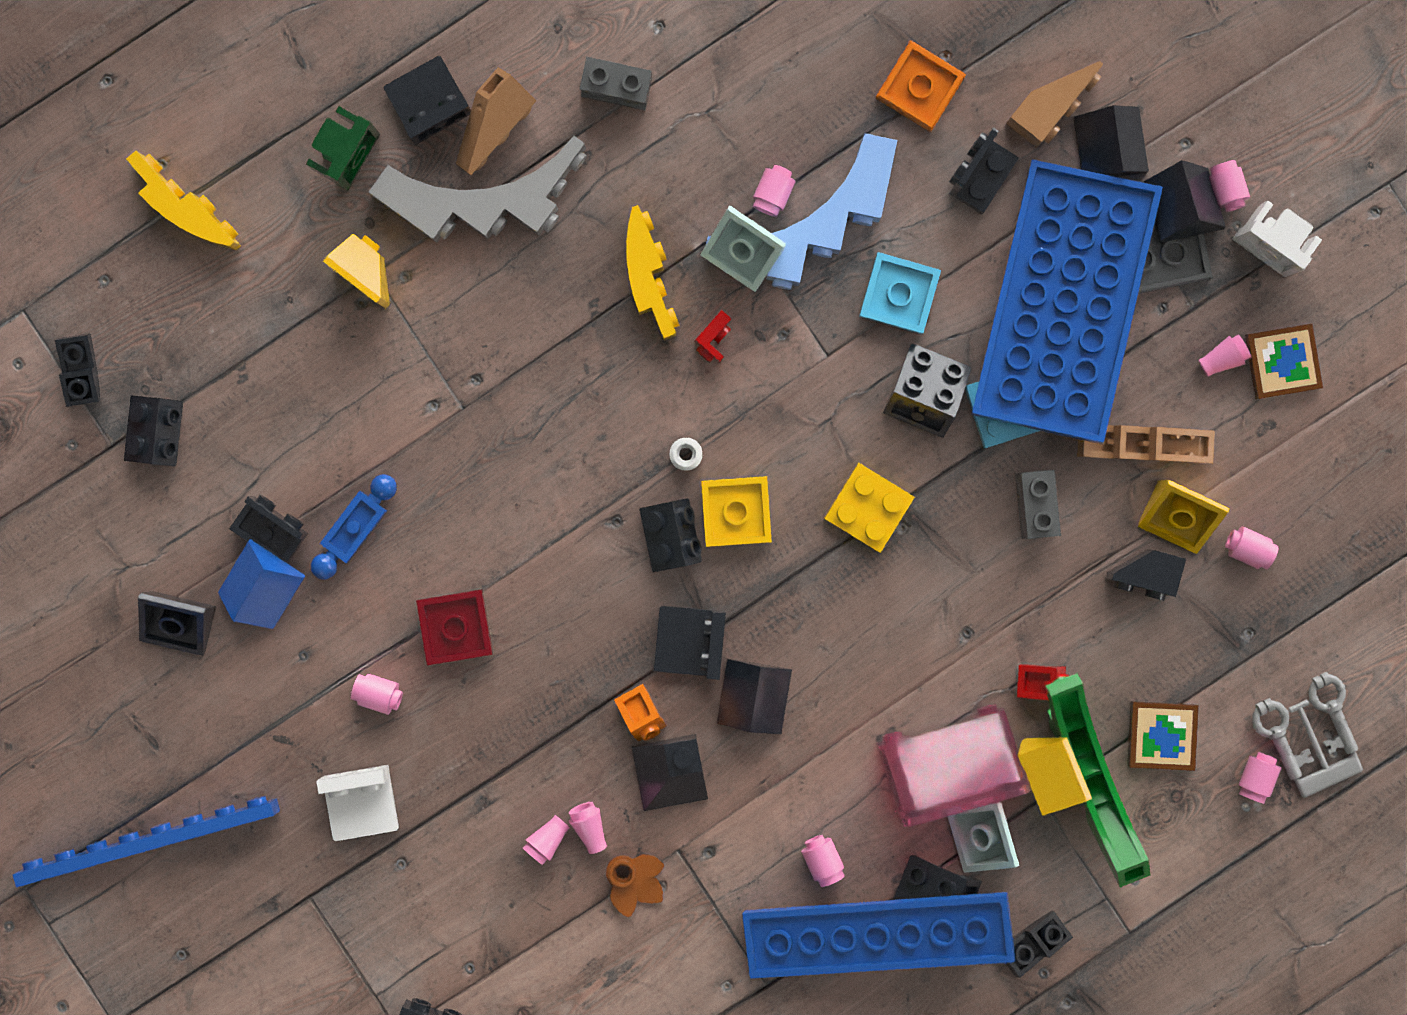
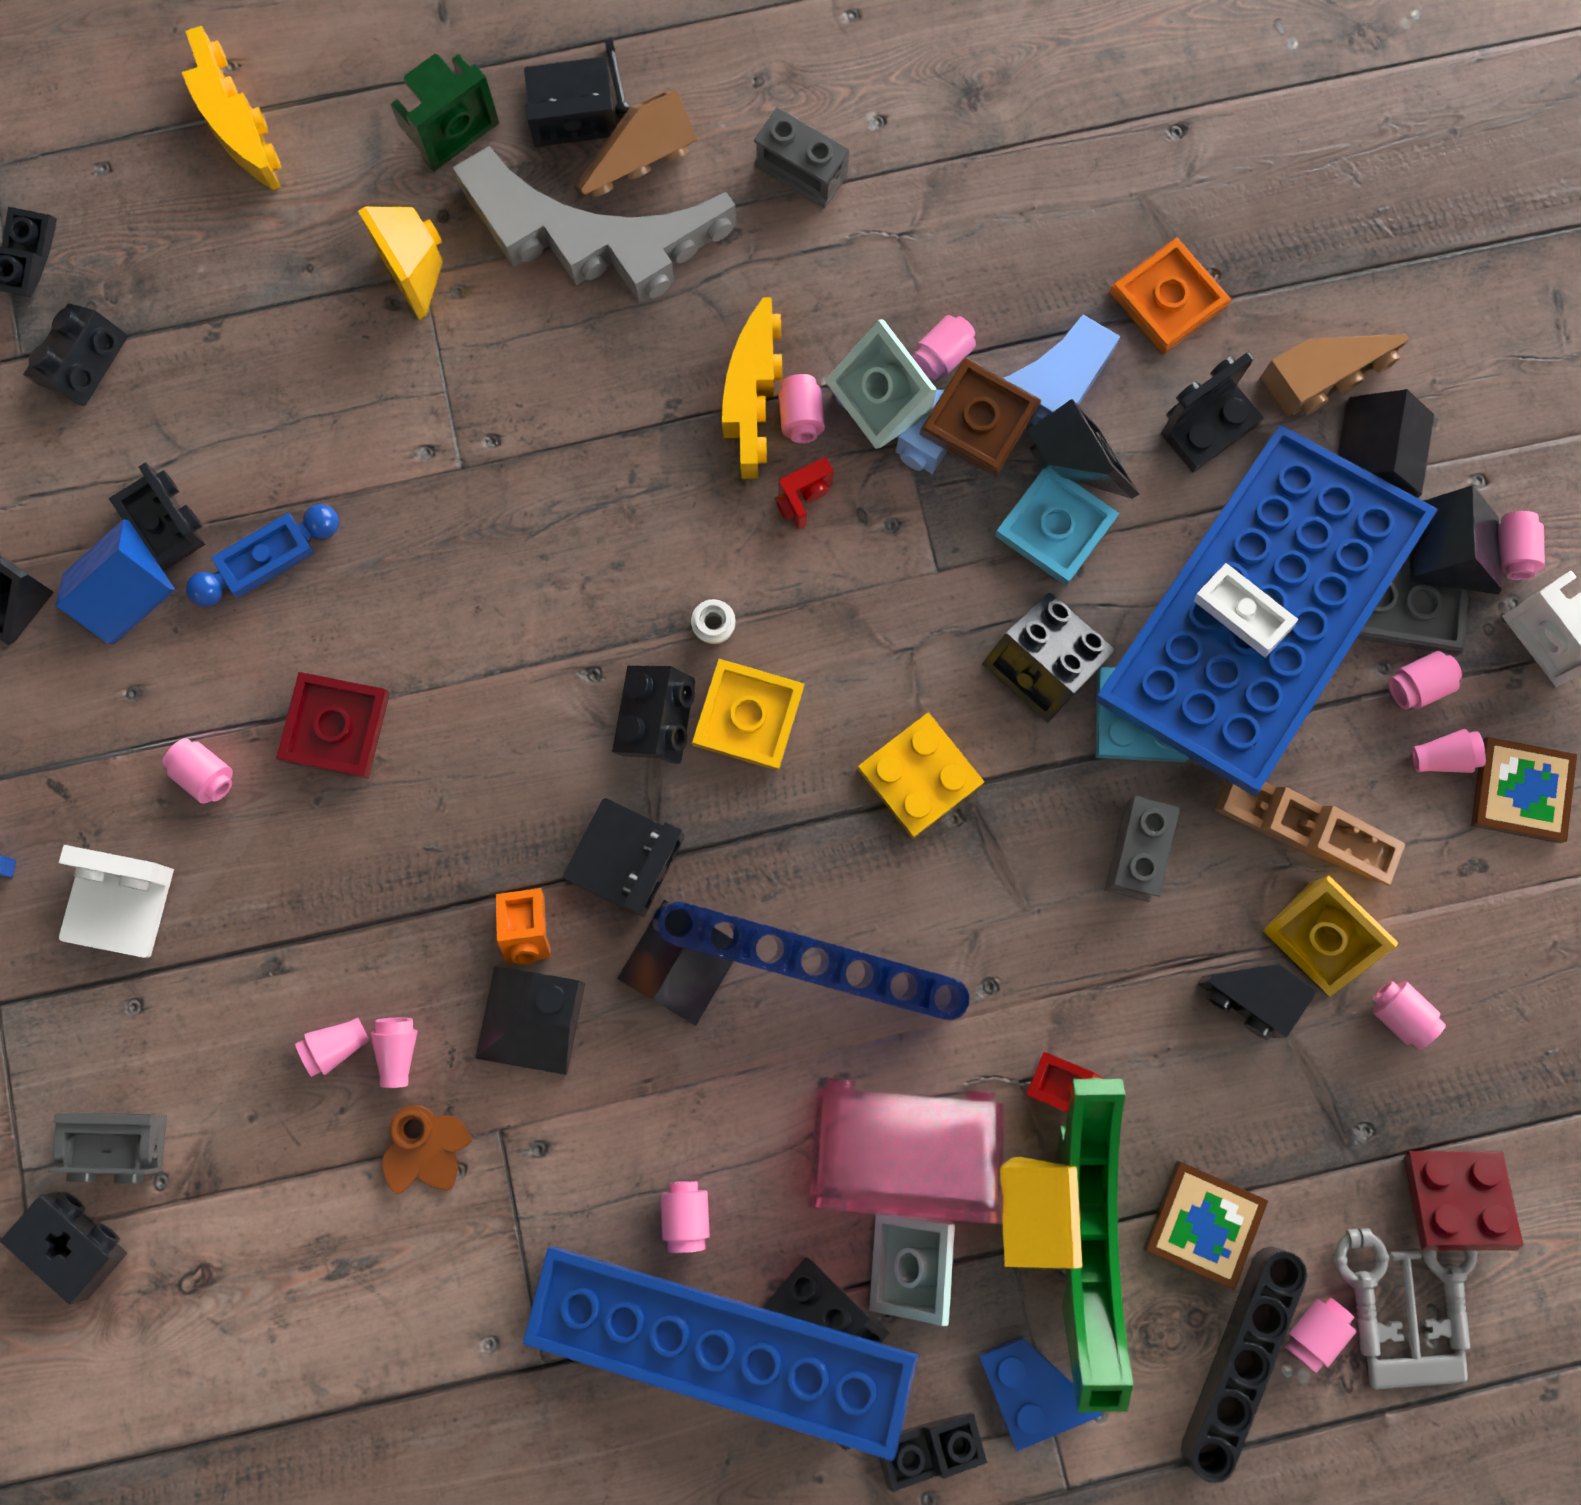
camera: 15 degrees right, 10 degrees down
(428, 958) = (109, 1145): none -> dark grey hinge
(467, 89) = (621, 106): none -> black hinge
(688, 276) = (801, 408): none -> bright pink brick
(820, 240) = (980, 417): none -> reddish brown tile
(859, 670) = (833, 967): none -> clear blue beam
(899, 236) = (1079, 451): none -> black slope
(1053, 316) = (1245, 610): none -> white plate
(1085, 883) = (1031, 1393): none -> blue wing
(1192, 310) = (1425, 680): none -> bright pink brick
(1223, 827) = (1249, 1386): none -> black beam
(1324, 657) = (1462, 1201): none -> dark red plate

